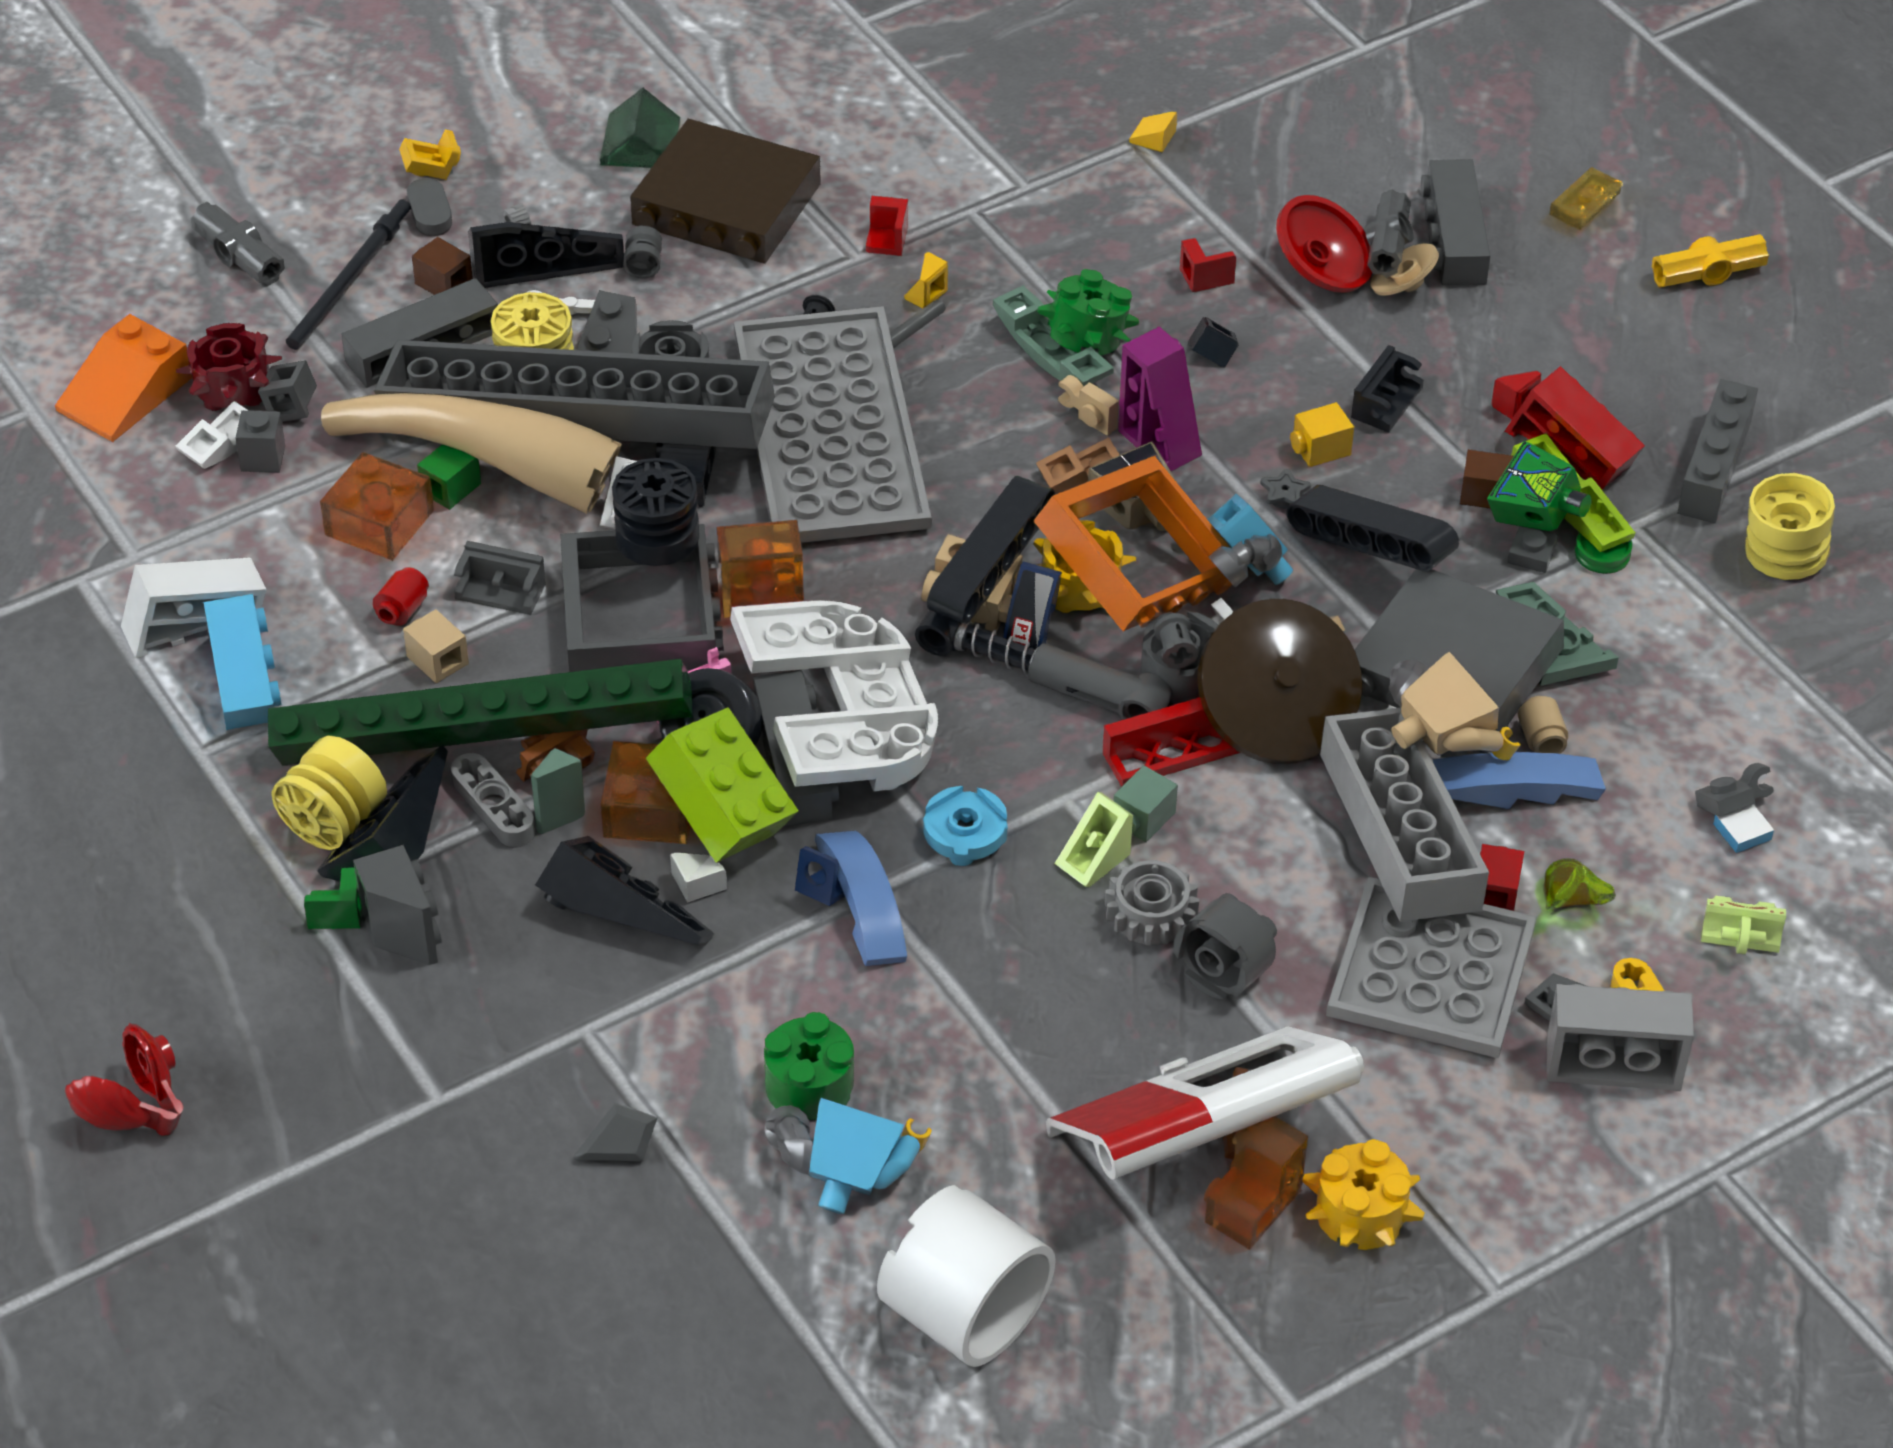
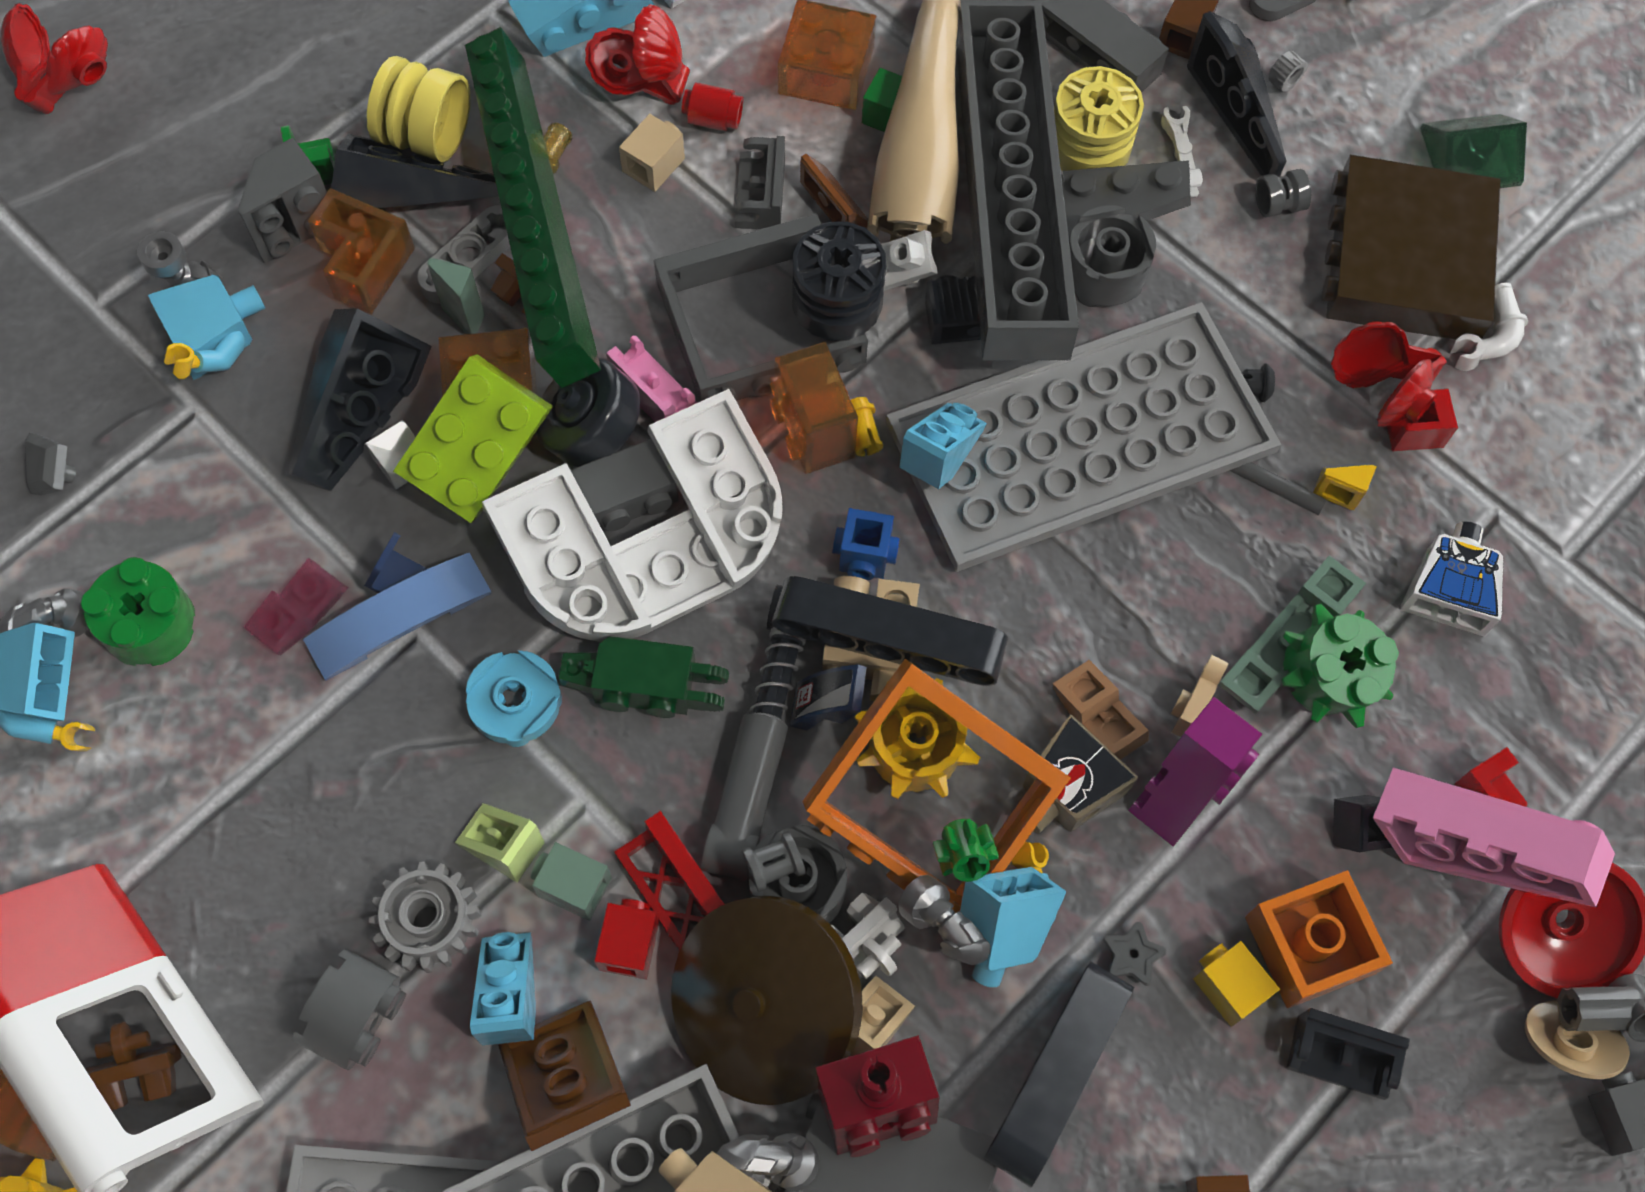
camera: 75 degrees right, 20 degrees up
(336, 648) = (647, 58): none -> red animal
(473, 854) = (365, 246): none -> clear orange brick
(497, 994) = (196, 311): none -> medium azure torso
(533, 534) = (829, 193): none -> dark orange slope
(827, 967) = (297, 609): none -> clear pink slope
(830, 487) = (940, 443): none -> medium azure slope
(831, 167) = (1507, 332): none -> white piece
(862, 210) = (1382, 352): none -> red animal
(897, 564) = (866, 544): none -> blue brick
(973, 731) = (643, 676): none -> dark green hinge
(1033, 240) = (1458, 582): none -> torso
(1197, 524) = (965, 850): none -> green gear
(1204, 776) = (627, 939): none -> red brick
(1234, 850) = (504, 990): none -> medium azure slope
(1258, 253) = (1492, 839): none -> bright pink wedge
(1300, 375) = (1318, 939): none -> orange brick
(1310, 813) = (563, 1076): none -> reddish brown tile
(1379, 604) = (878, 1096): none -> dark red brick

